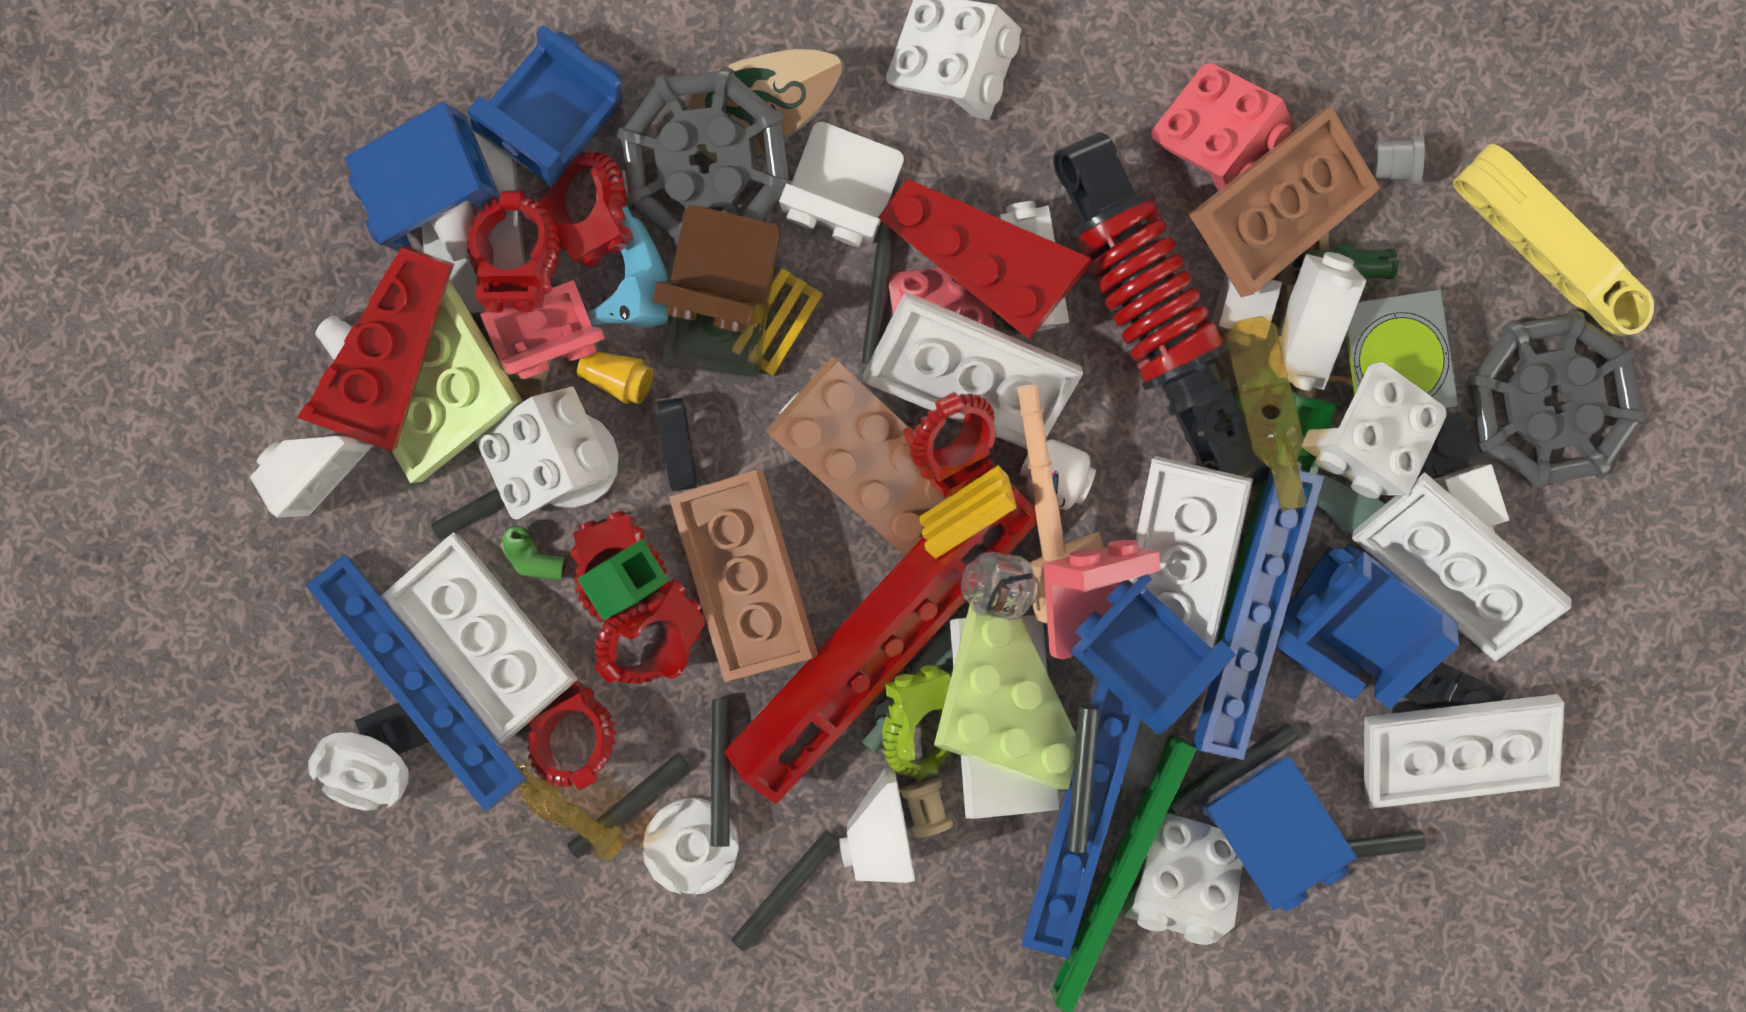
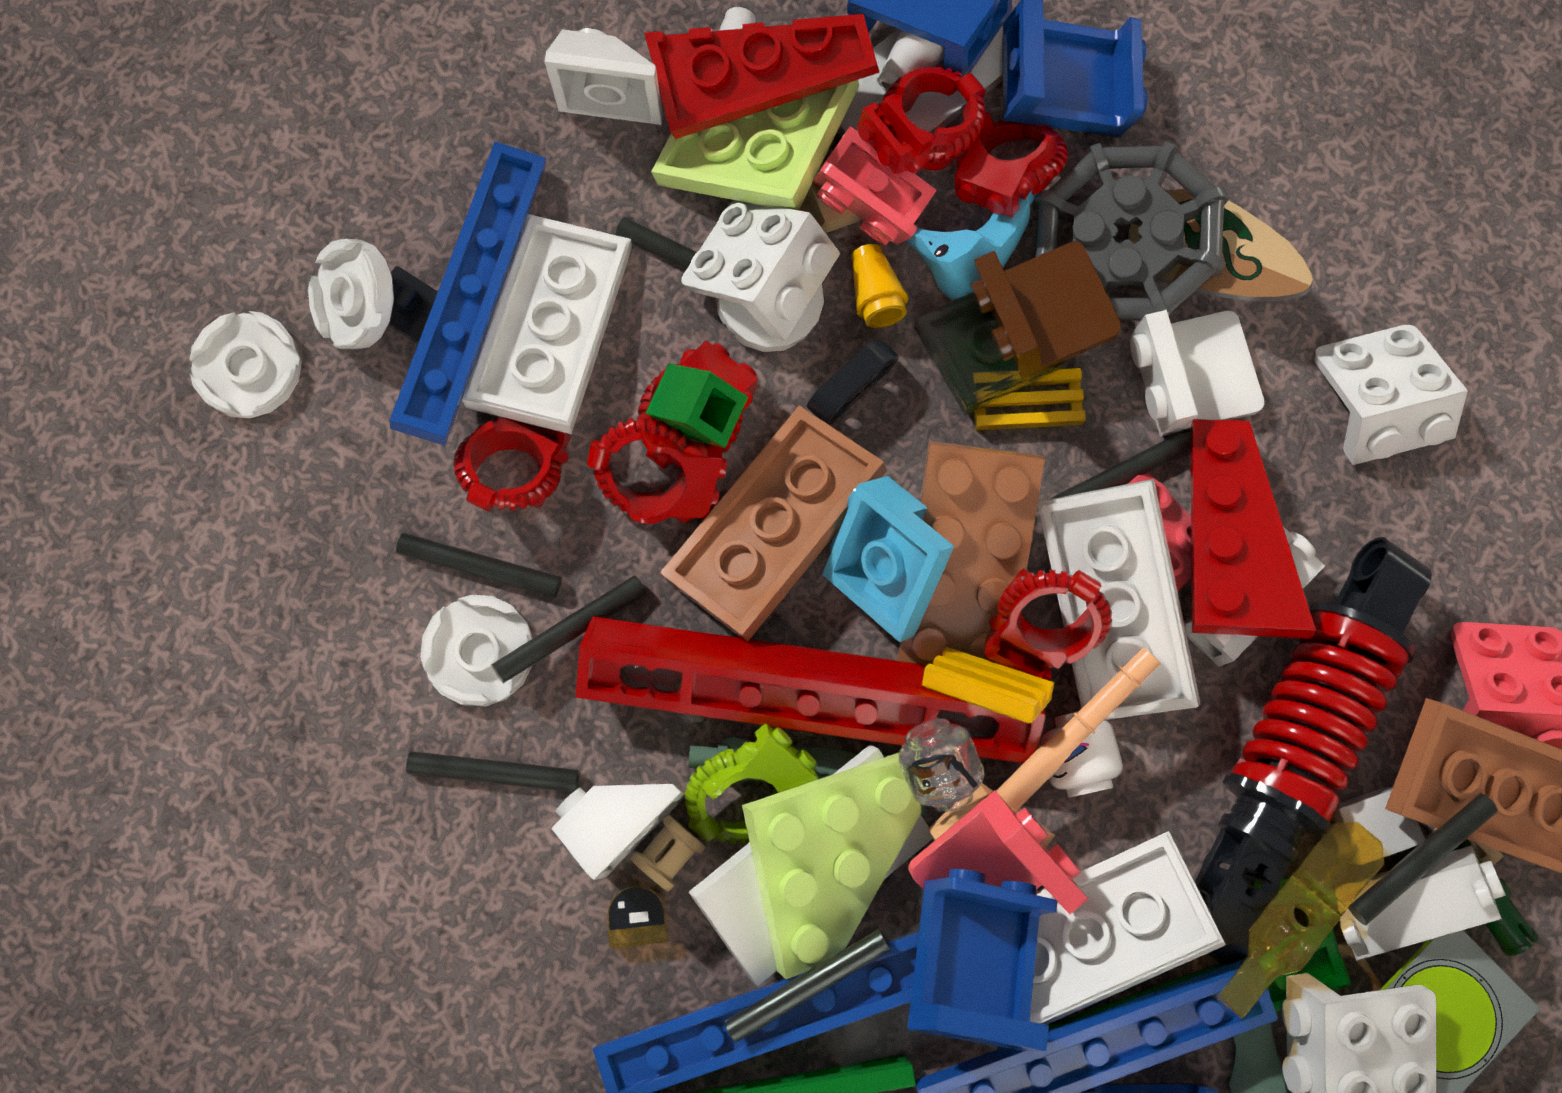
camera: 55 degrees right, 10 degrees down
(372, 870) = (256, 378): none -> white tile
(527, 557) = (652, 320): bright green arm -> none
(550, 805) = (431, 490): clear yellow piece -> none
(826, 518) = (887, 556): none -> medium azure plate
(955, 856) = (637, 918): none -> tile
(1291, 300) = (1423, 859): none -> pearl dark grey bar

